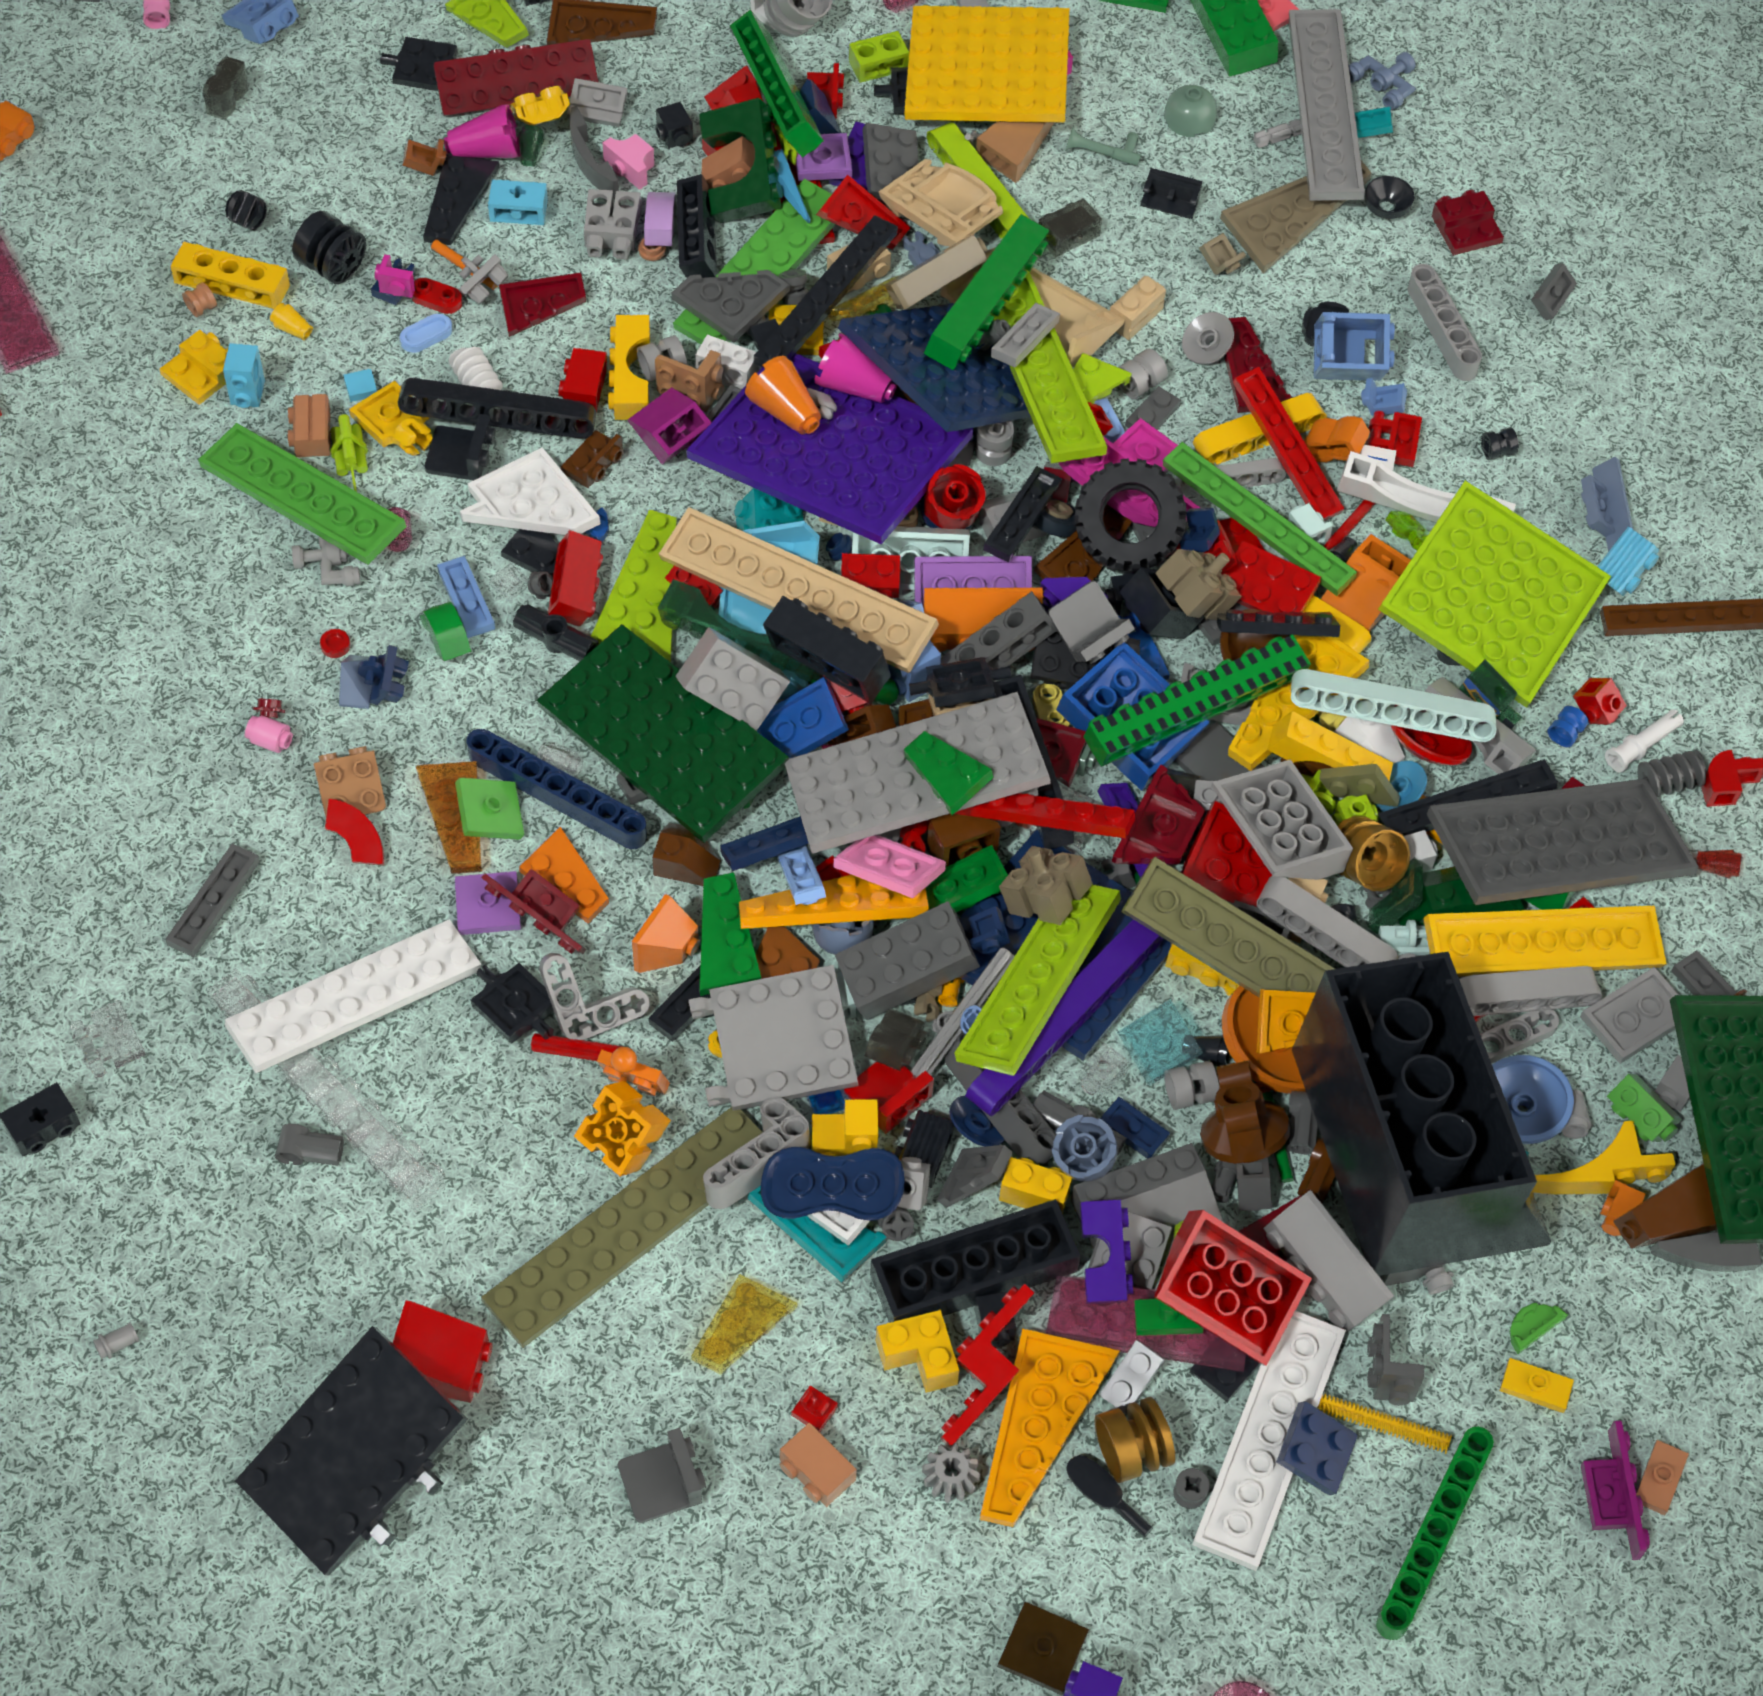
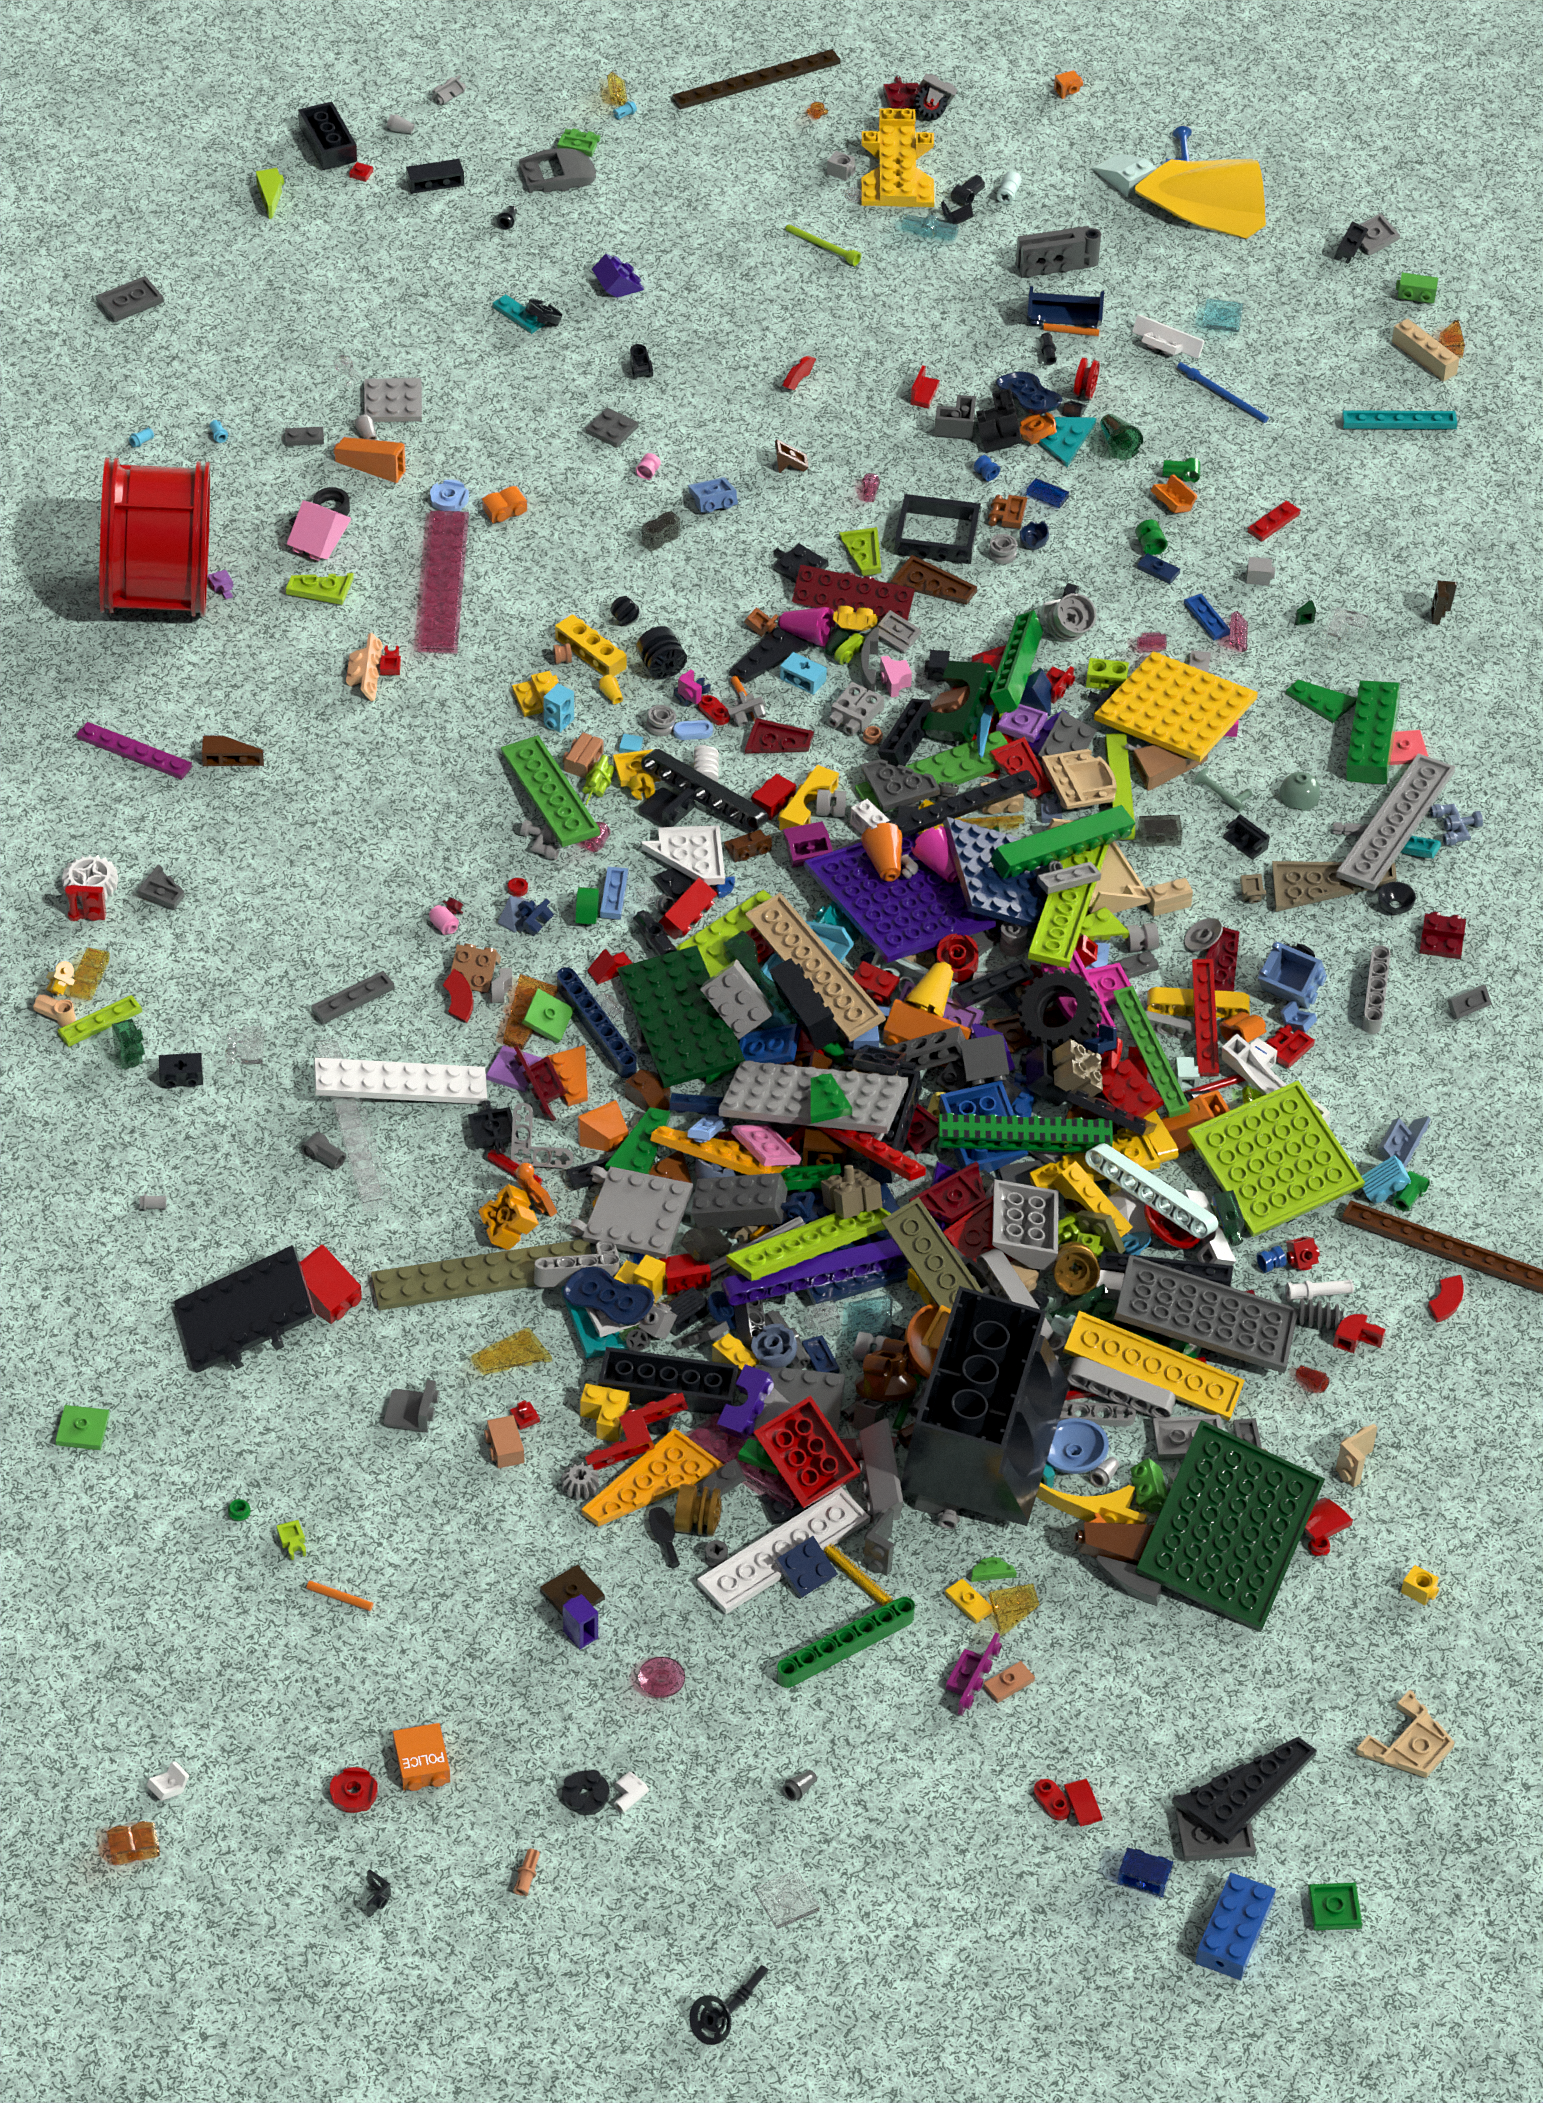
camera: 30 degrees right, 10 degrees down
(380, 337) = (661, 720): none -> light grey wheel
(399, 796) = (501, 985): none -> light grey piece
(520, 702) = (606, 966): none -> red slope
(553, 151) = (849, 648): none -> lime plate
(659, 218) = (885, 718): lavender slope -> none
(699, 384) = (841, 827): medium nougat bracket -> none
(936, 272) = (1037, 817): slope -> none
(962, 556) = (932, 989): none -> yellow cone
(1499, 443) = (1357, 1077): black wheel -> none
(1596, 1365) = (1012, 1606): none -> clear yellow wing
(1659, 576) = (1407, 1197): none -> green piece

